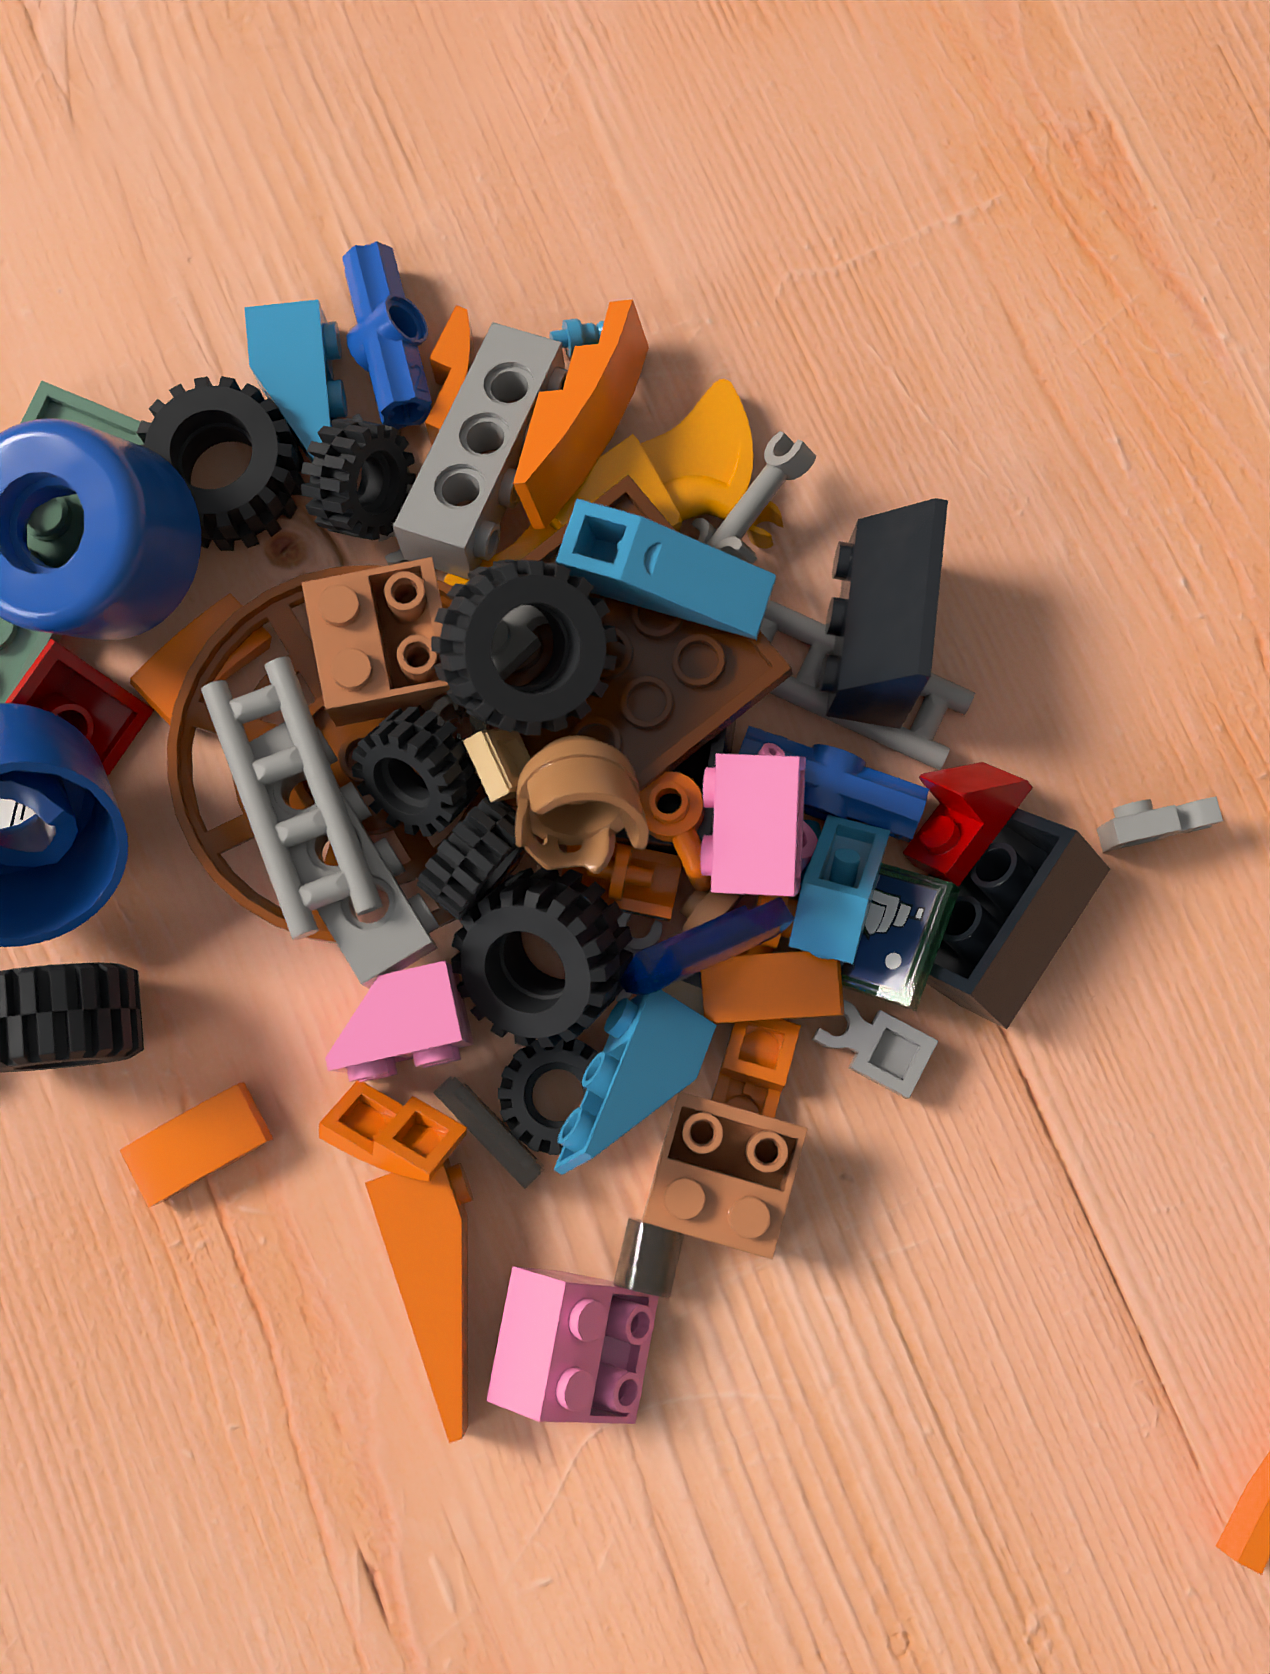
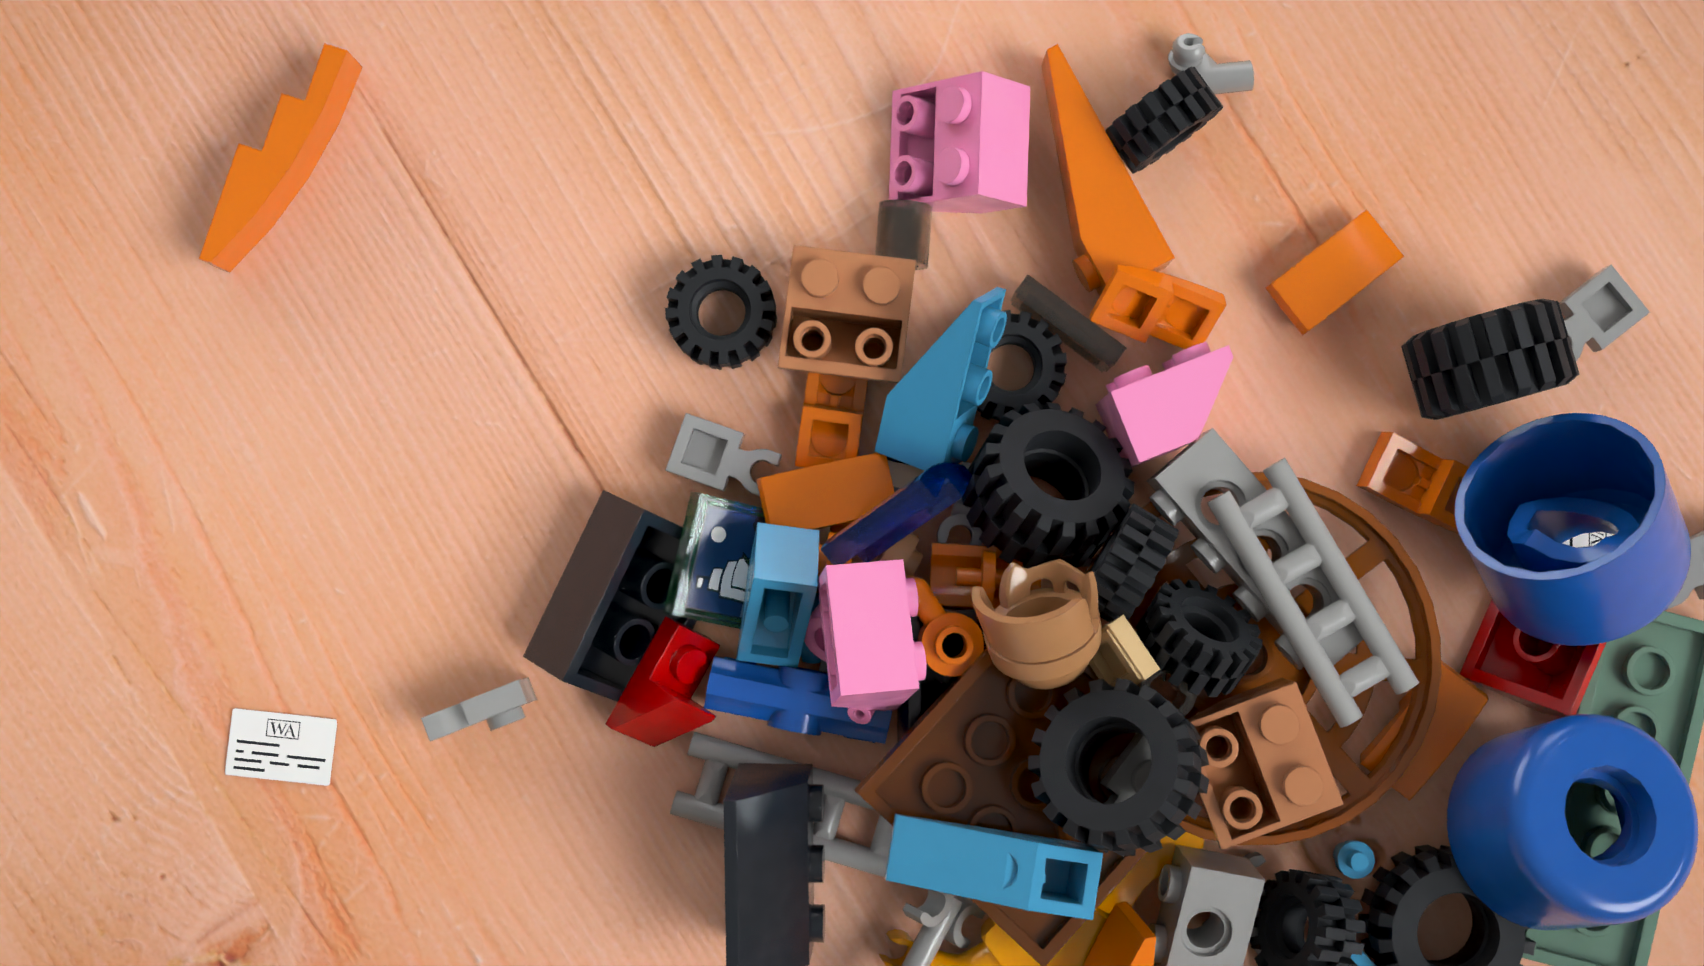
camera: 175 degrees right, 5 degrees up
(158, 913) = (1413, 479): none -> orange slope
(294, 1388) = (1222, 77): none -> light grey arm
(298, 543) = (1354, 858): none -> dark azure piece
(348, 1339) = (1163, 119): none -> black tyre
(896, 1208) = (716, 276): none -> black tyre

